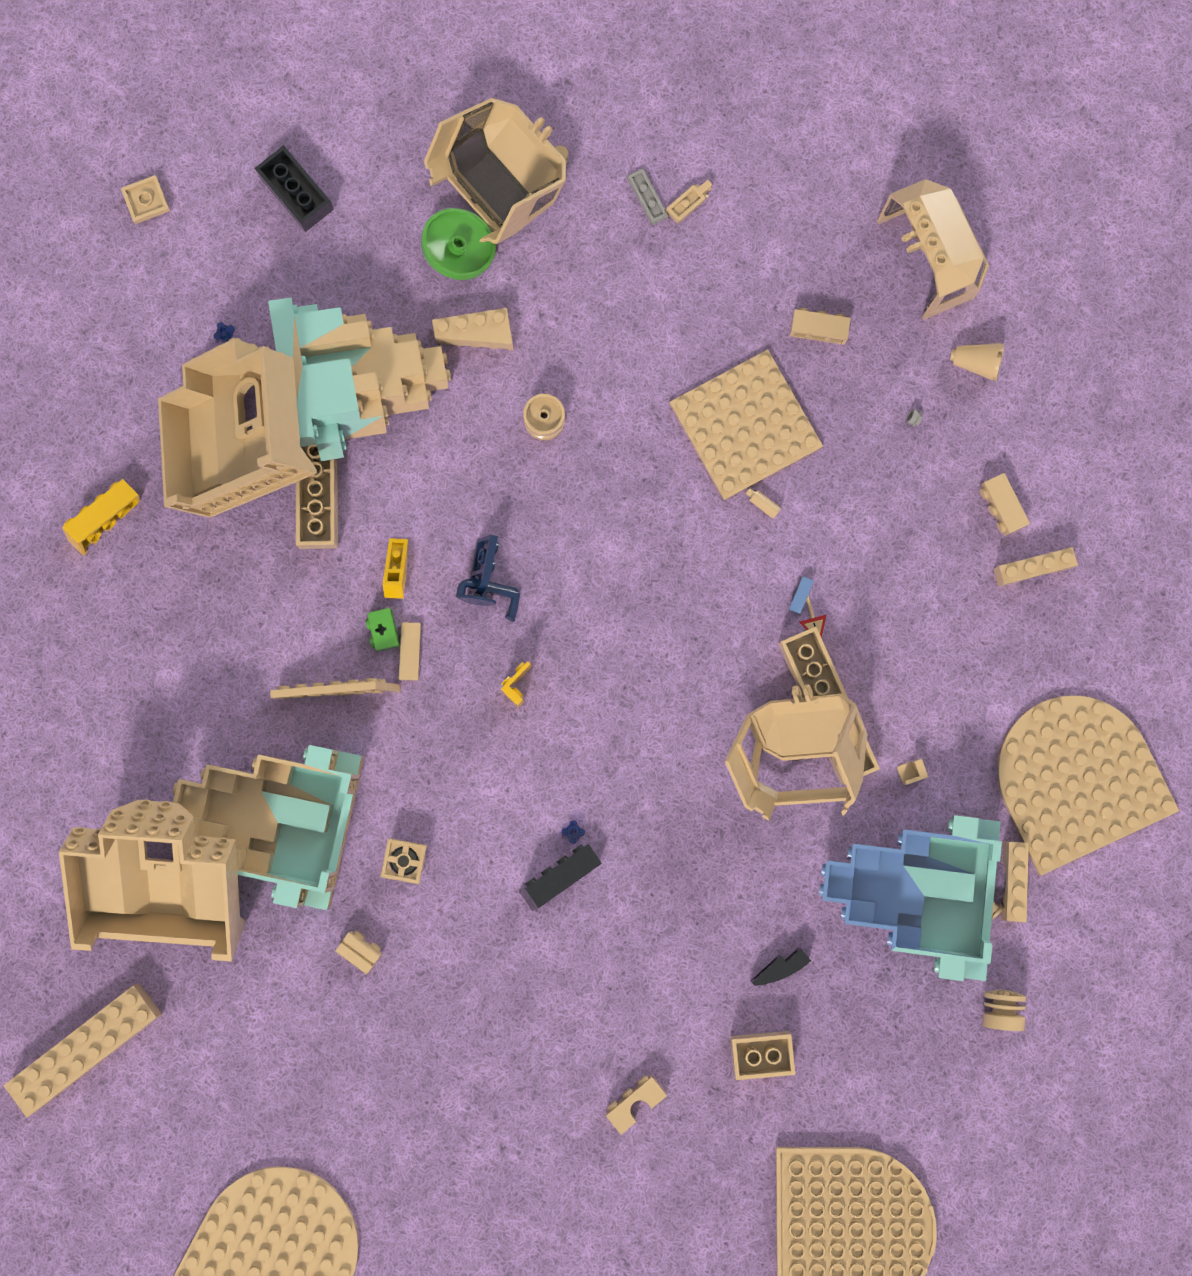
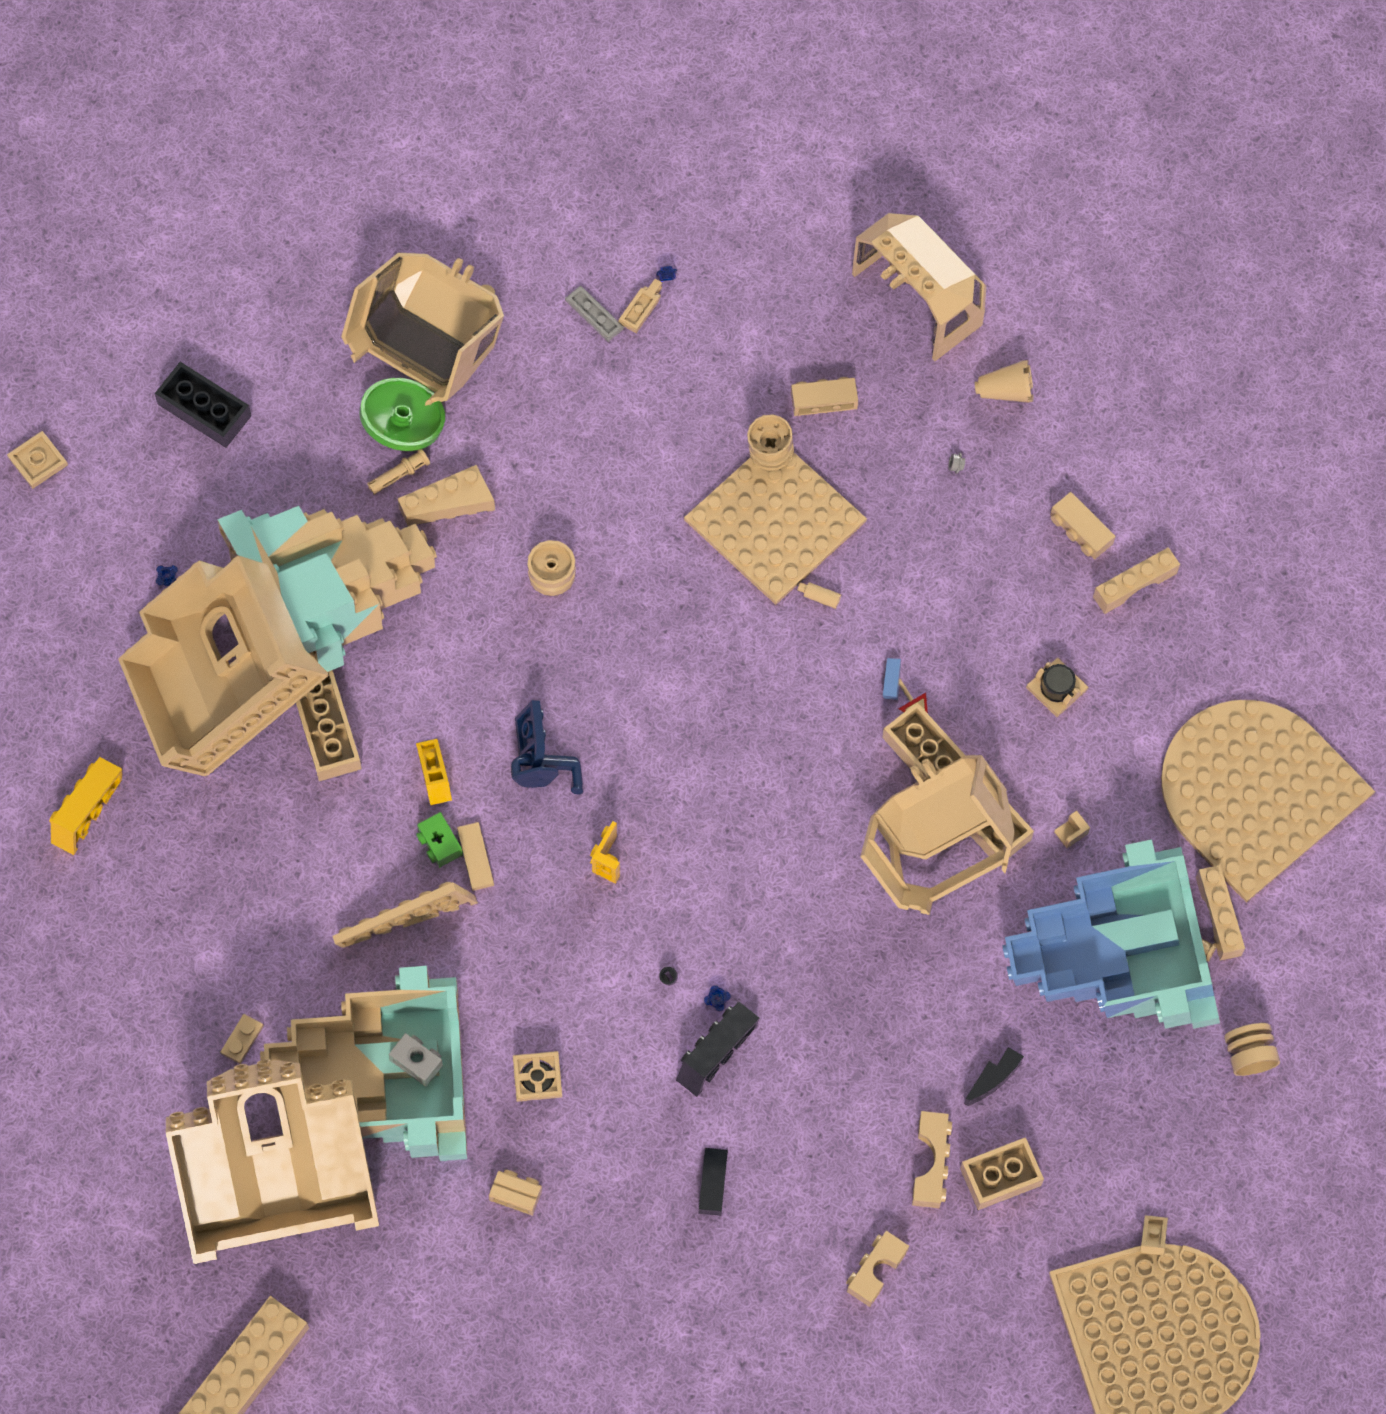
camera: 15 degrees left, 15 degrees down
(175, 754) = (242, 1039): none -> tan plate
(295, 816) = (421, 1071): none -> light grey brick
(450, 291) = (407, 466): none -> tan pin
(523, 989) = (713, 1181): none -> black slope
(535, 803) = (664, 979): none -> black hinge
(698, 1048) = (933, 1131): none -> tan arch
(719, 177) = (666, 273): none -> clear blue plate
(763, 348) = (770, 442): none -> tan wheel
(872, 1144) = (1154, 1235): none -> tan plate
(939, 641) = (1058, 684): none -> piece

